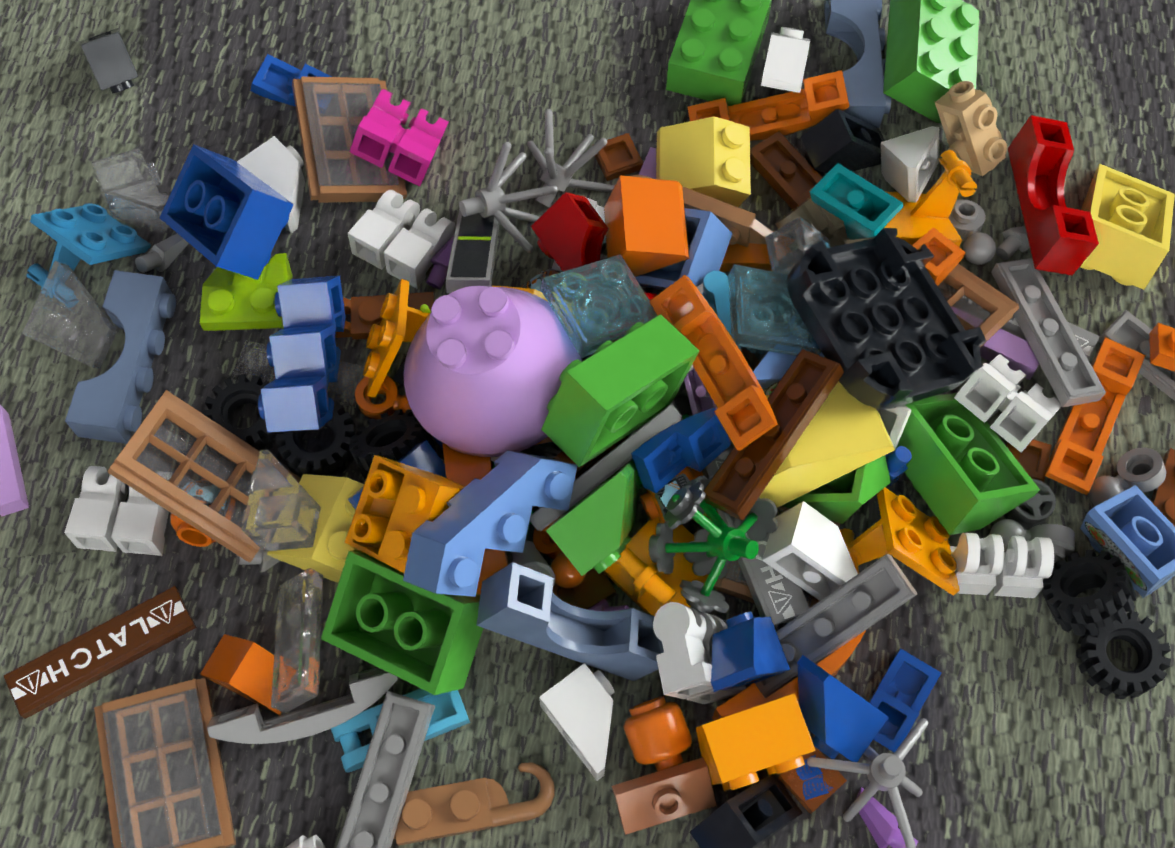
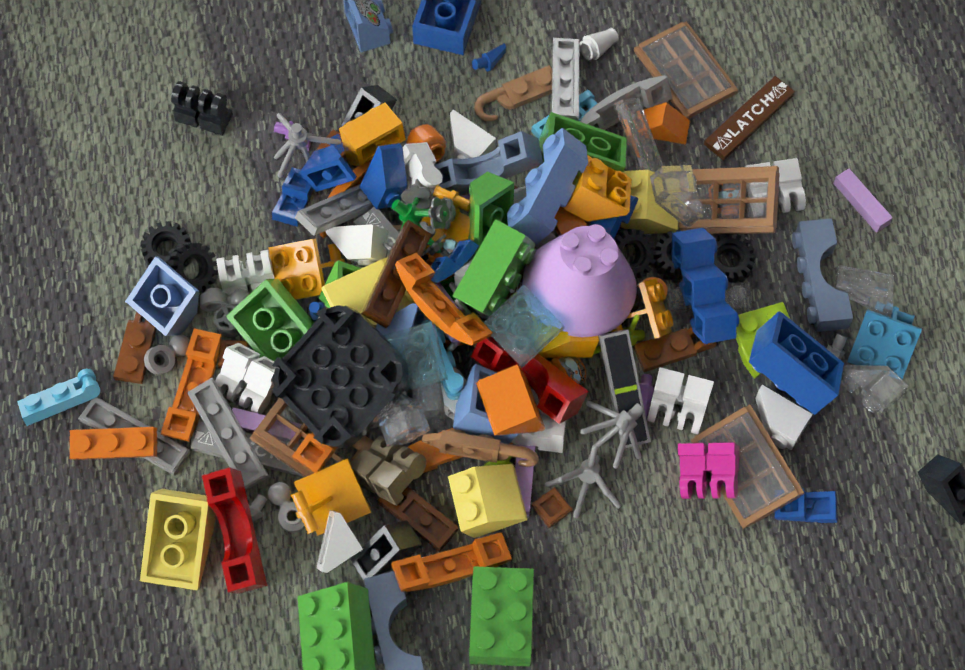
camera: 165 degrees right, 0 degrees up
(664, 795) = (419, 114): nougat plate -> none
(786, 60) = (446, 594): white slope -> none
(855, 201) = (369, 456): teal slope -> none
(971, 127) = (298, 568): tan brick -> none

